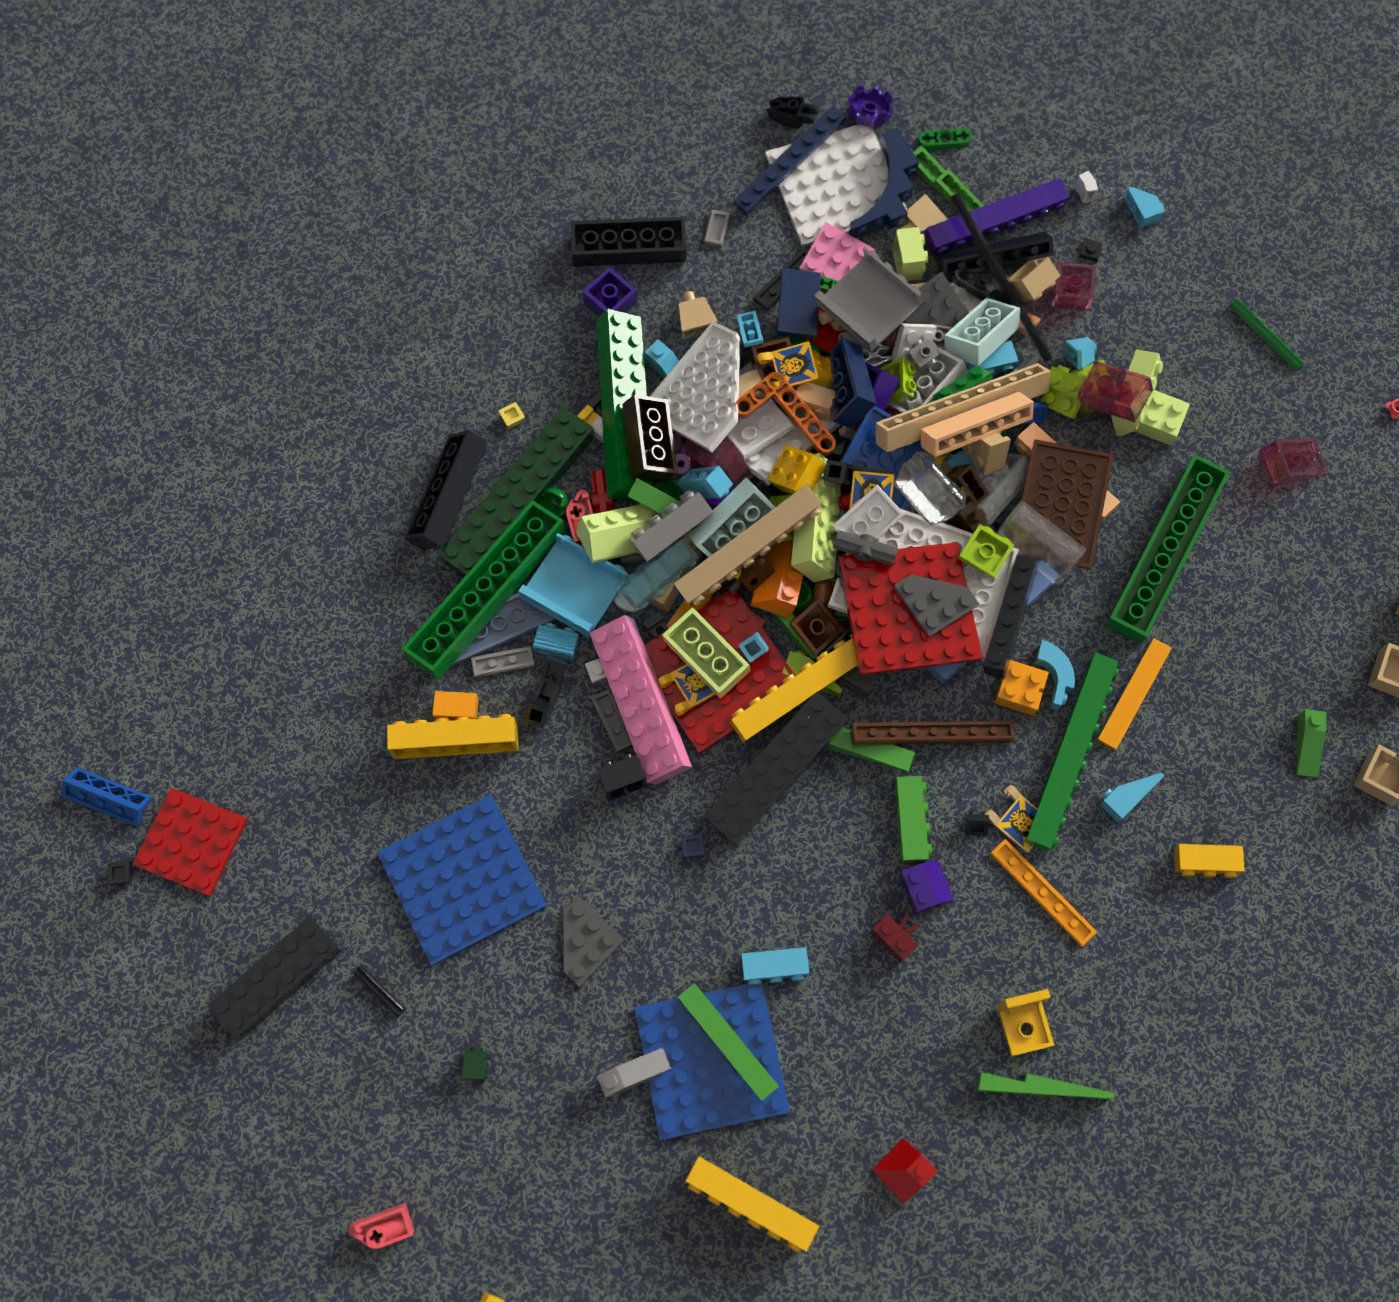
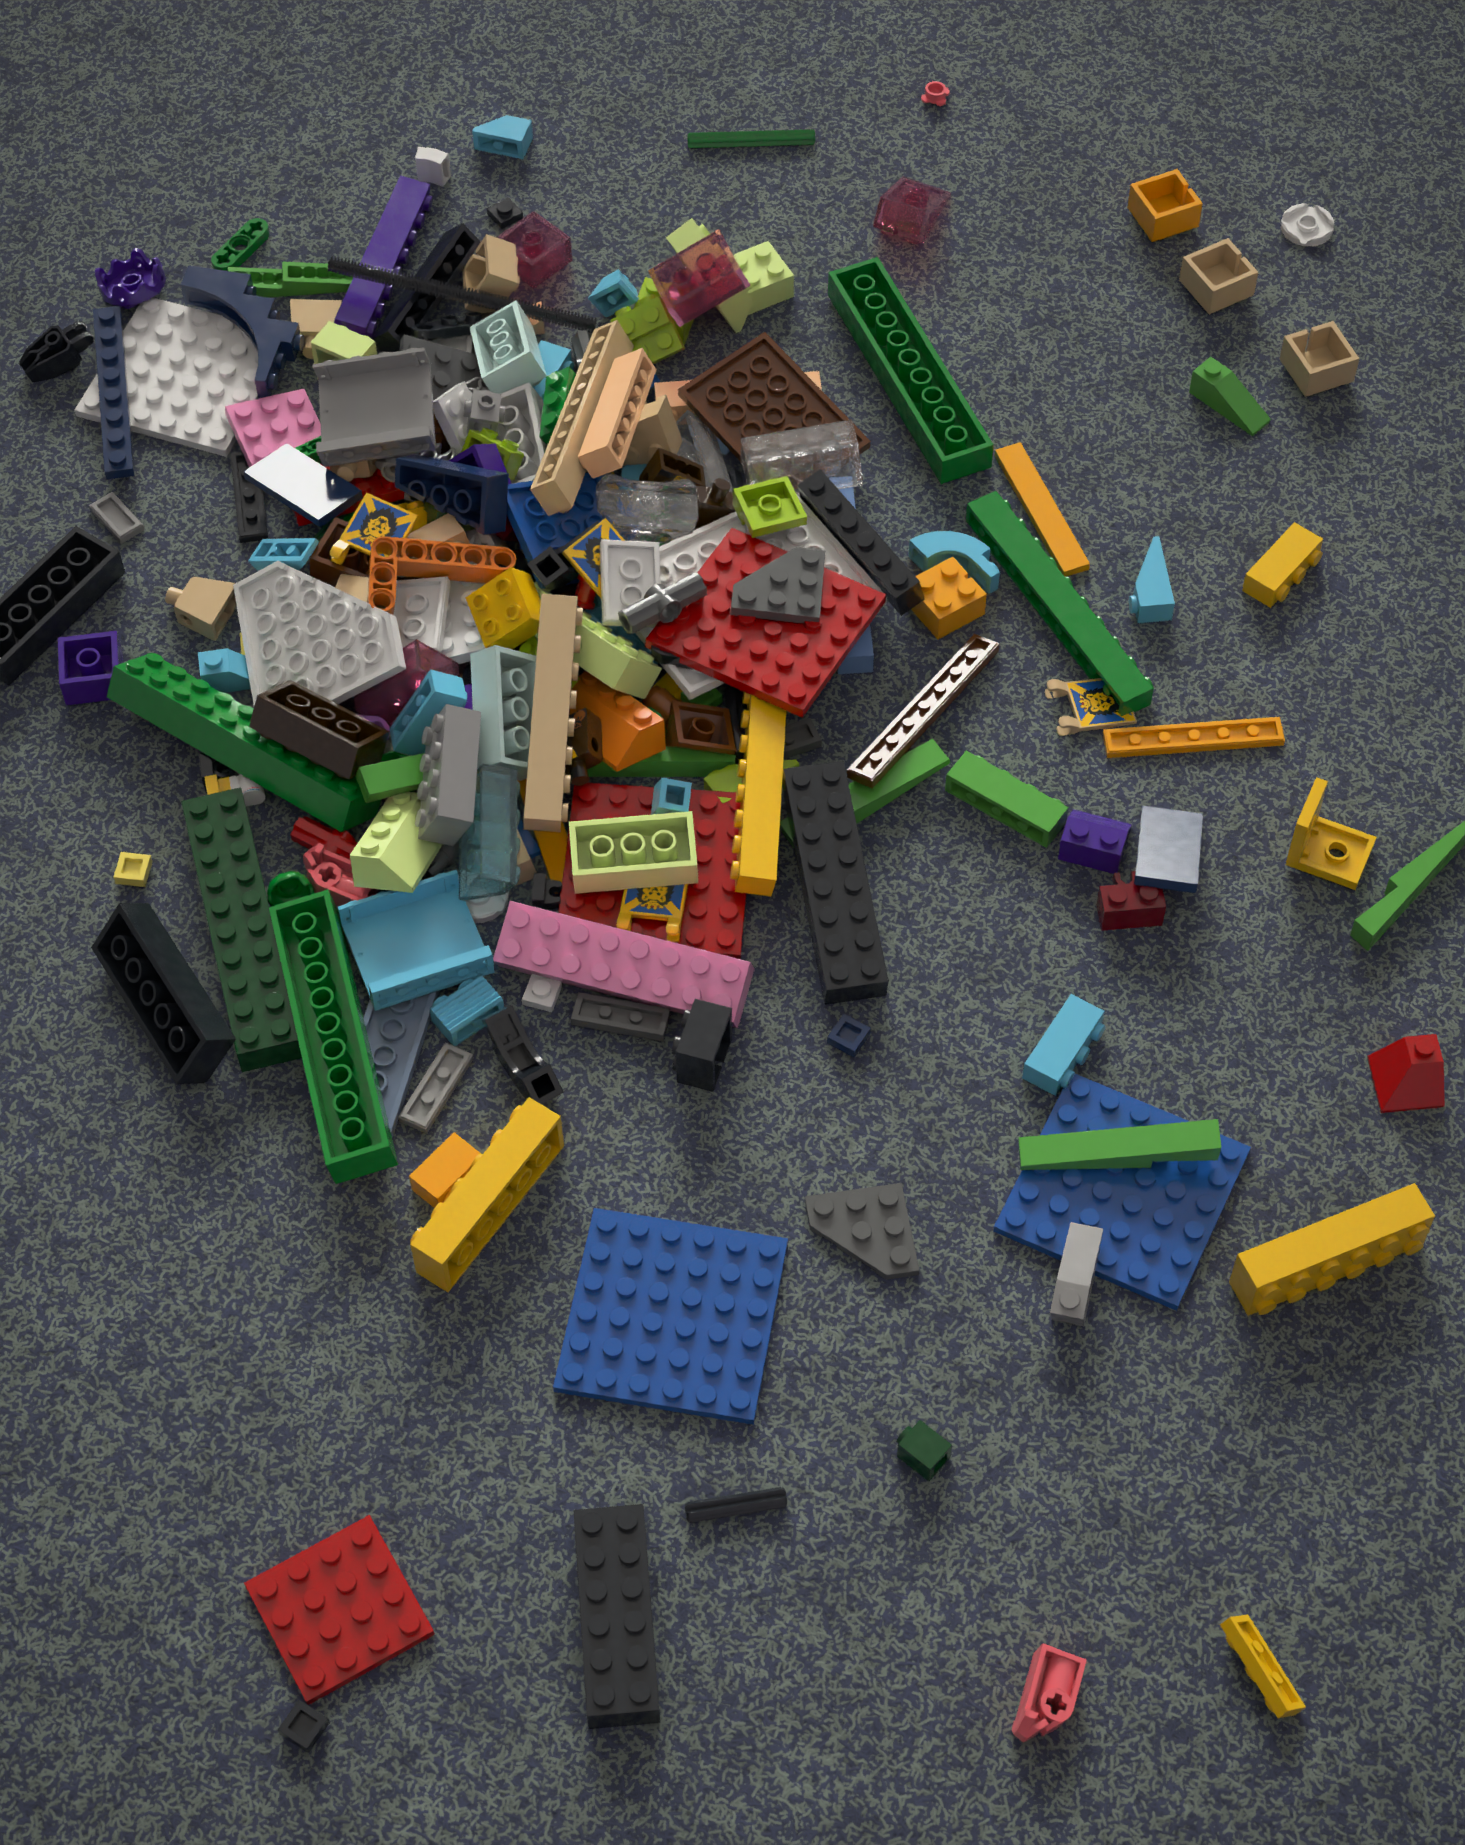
camera: 50 degrees left, 15 degrees down
(102, 798) = (182, 1677): blue fence -> none
(946, 933) = (1168, 849): none -> tile
(977, 824) = (1064, 742): black tile -> none

